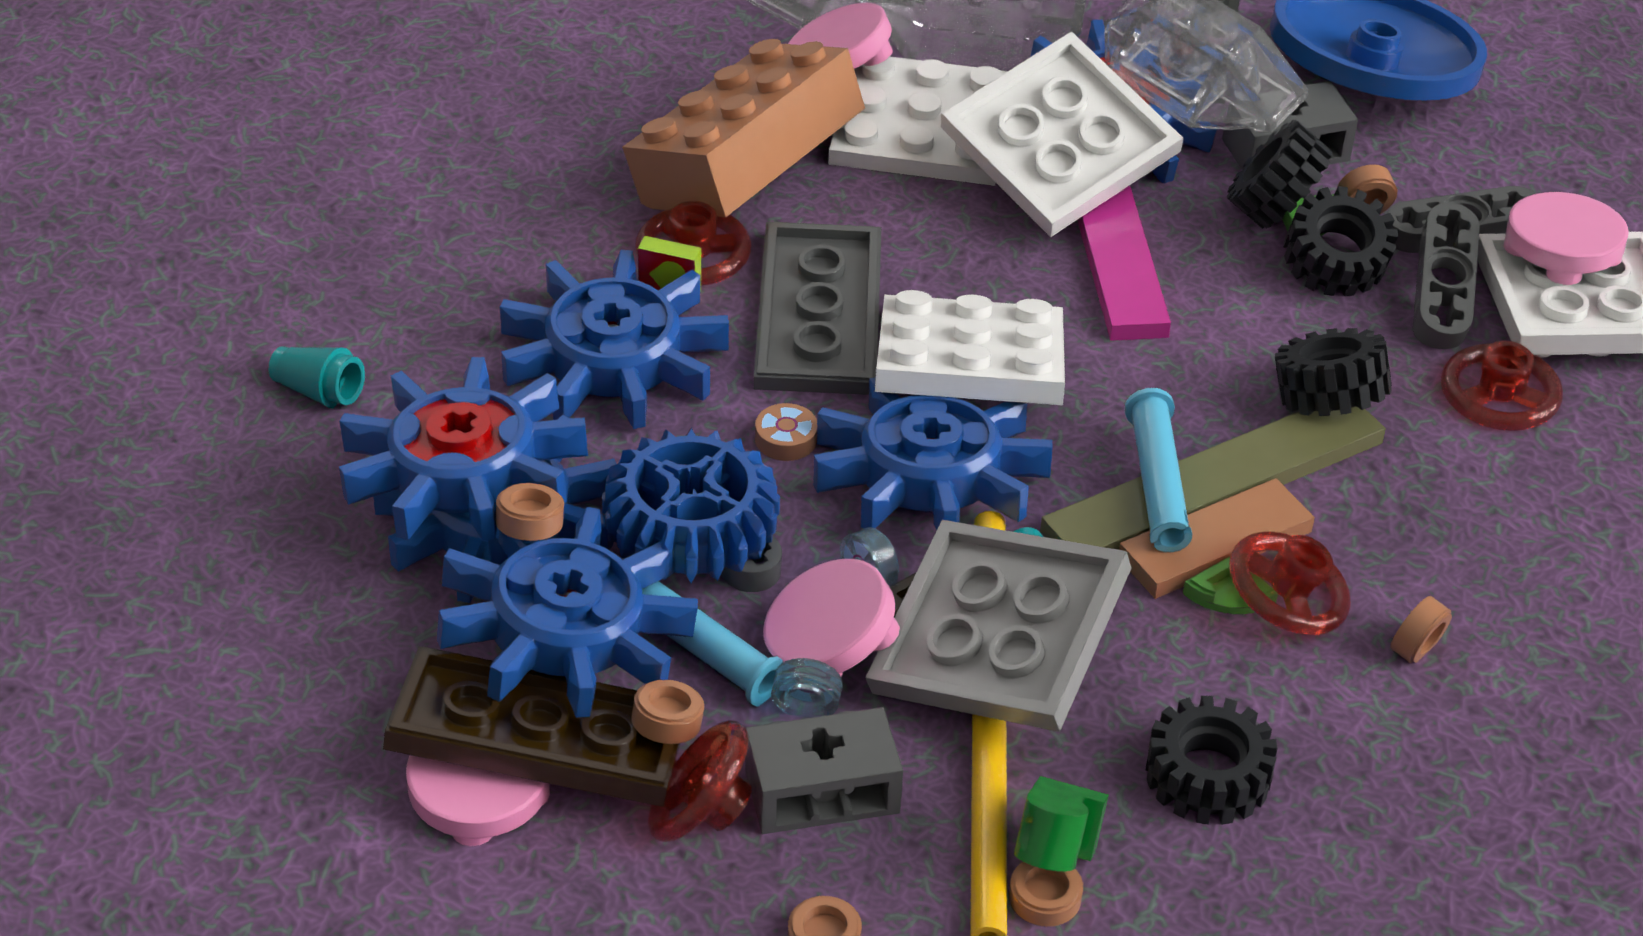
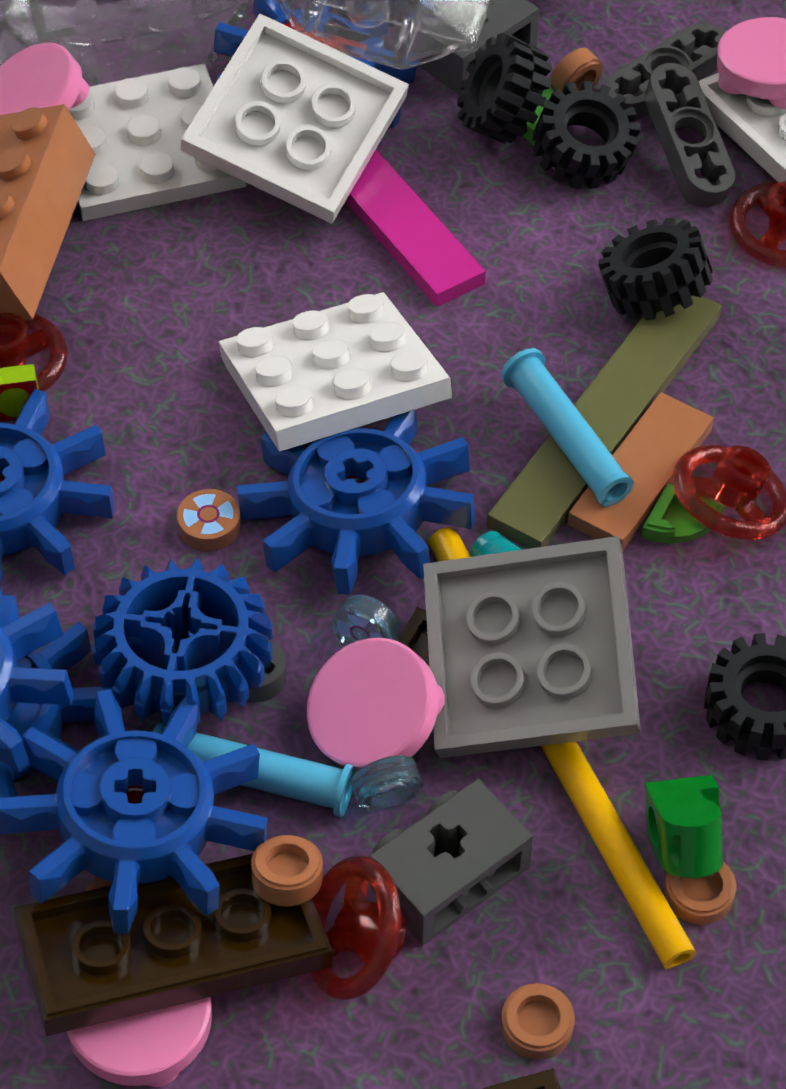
camera: 25 degrees left, 10 degrees up
(529, 512) = (54, 726): nougat tile -> none
(818, 308) = (163, 378): dark grey tile -> none

